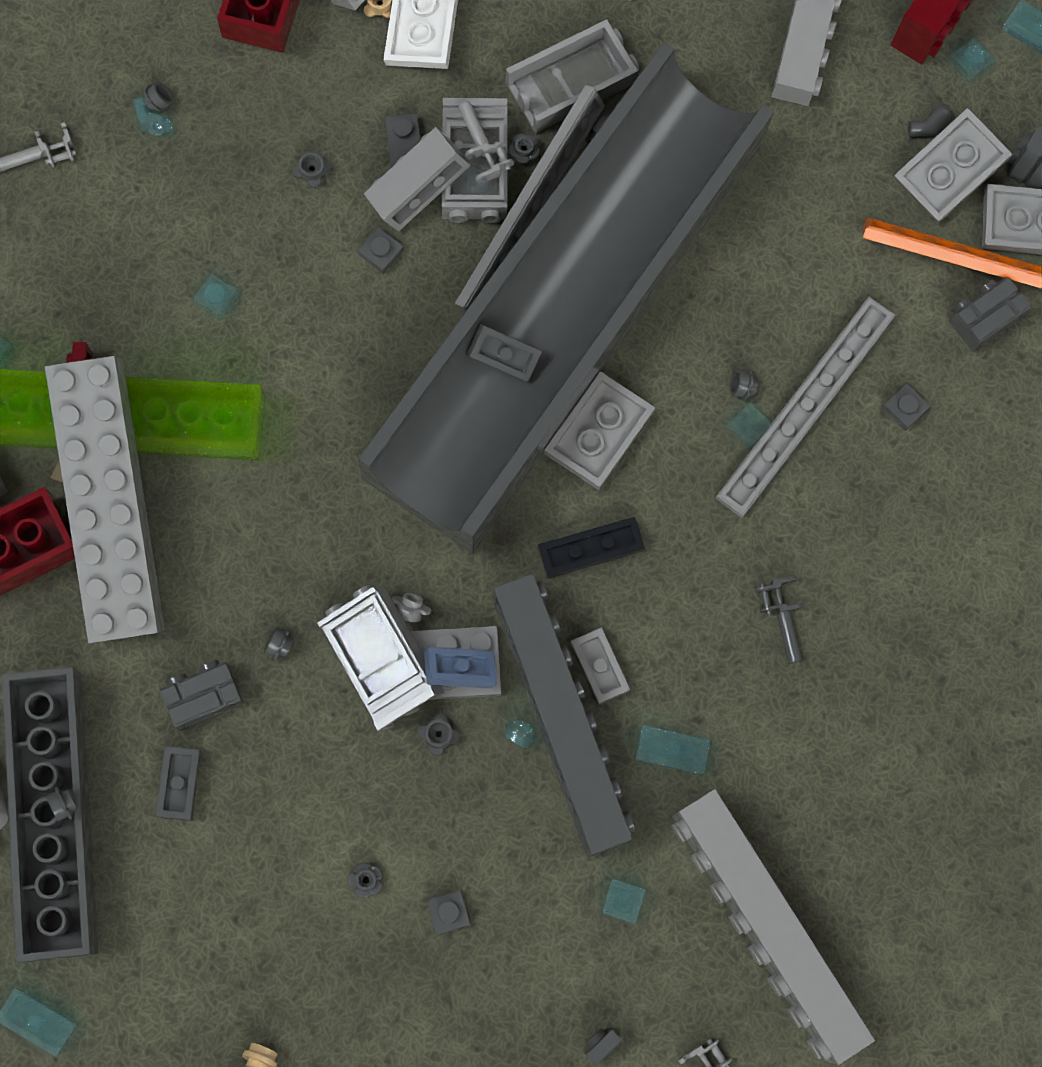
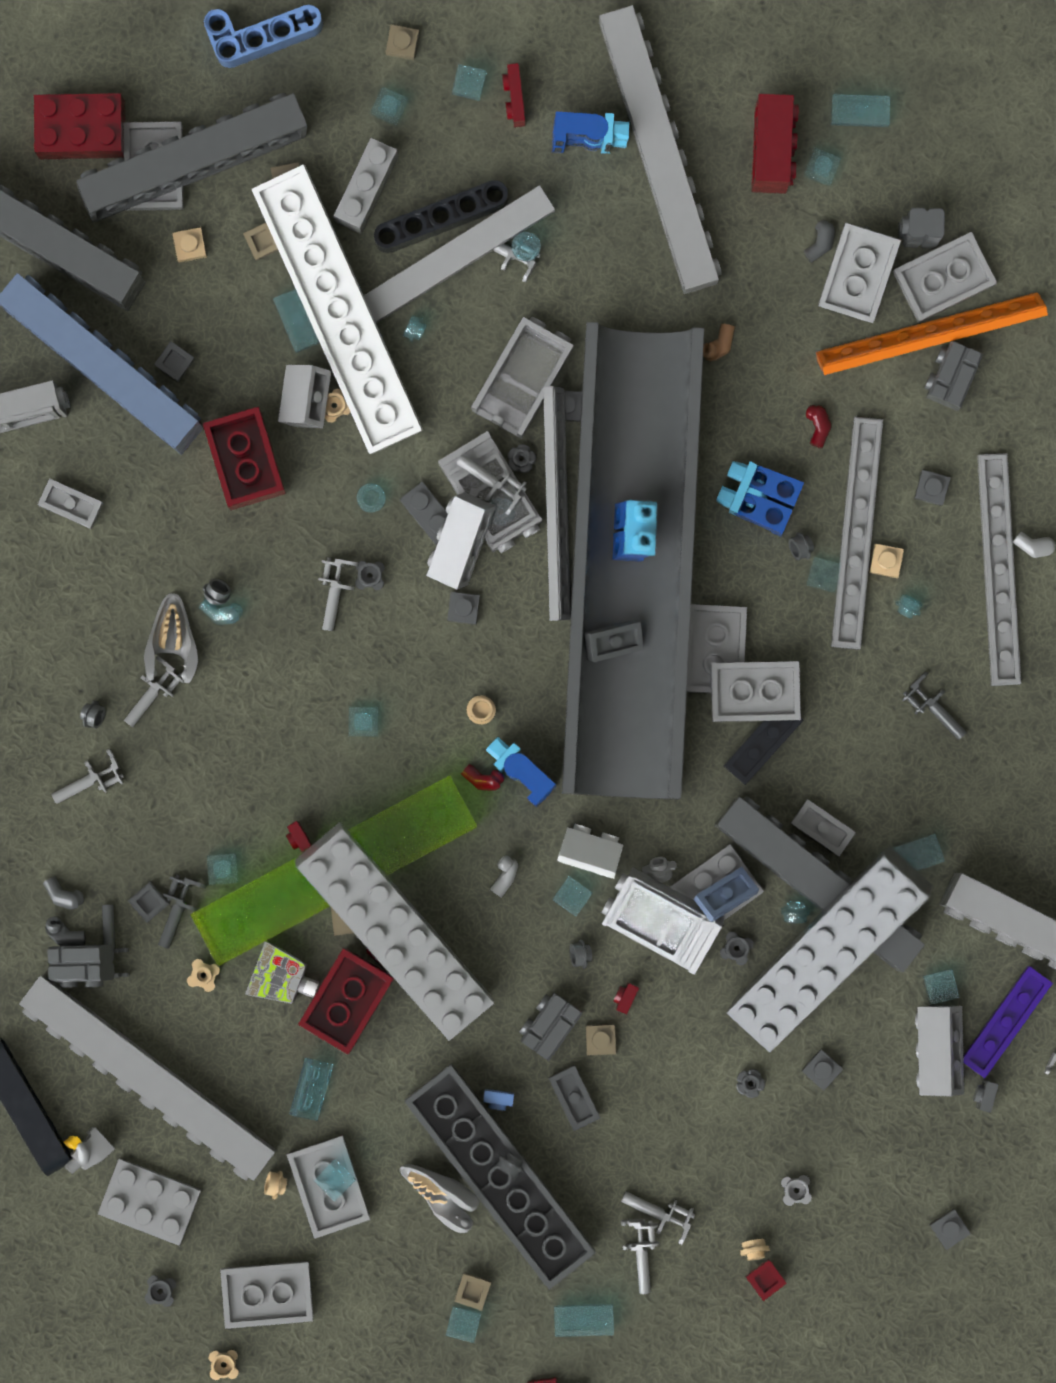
camera: 25 degrees left, 10 degrees up
(87, 109) = (171, 635): none -> light grey animal
(100, 736) = (498, 1099): none -> medium blue plate
(143, 985) = (641, 1250): none -> light grey piece
(188, 958) = (659, 1213): none -> light grey piece
(243, 742) = (600, 1039): none -> dark tan plate
(257, 524) = (507, 877): none -> light grey arm
(270, 161) = (334, 591): none -> light grey piece
(294, 420) = (483, 782): none -> dark red arm
(294, 713) = (625, 997): none -> dark red plate
(307, 581) = (572, 896): none -> clear light blue plate
(332, 416) = (521, 769): none -> blue hips
(335, 352) = (481, 710): none -> tan plate
(339, 1013) = (803, 1194): none -> light grey plate
(351, 546) = (590, 851): none -> white slope
(359, 101) = (371, 498): none -> clear light blue plate
(531, 780) = (830, 949): none -> brick
(582, 966) = (940, 1050): none -> light grey brick
(590, 259) = (637, 532): none -> medium azure hips
(613, 489) = (755, 691): none -> light grey plate
(669, 980) = (1006, 1021): none -> dark purple plate
(733, 314) = (751, 499): none -> blue hips
(771, 160) = (720, 346): none -> medium nougat arm
(816, 503) = (908, 606): none -> clear light blue plate
(819, 448) = (886, 560): none -> tan plate
(832, 286) = (822, 423): none -> dark red arm
(926, 525) = (999, 569): none -> light grey tile
(976, 520) = (1035, 547): none -> light grey arm

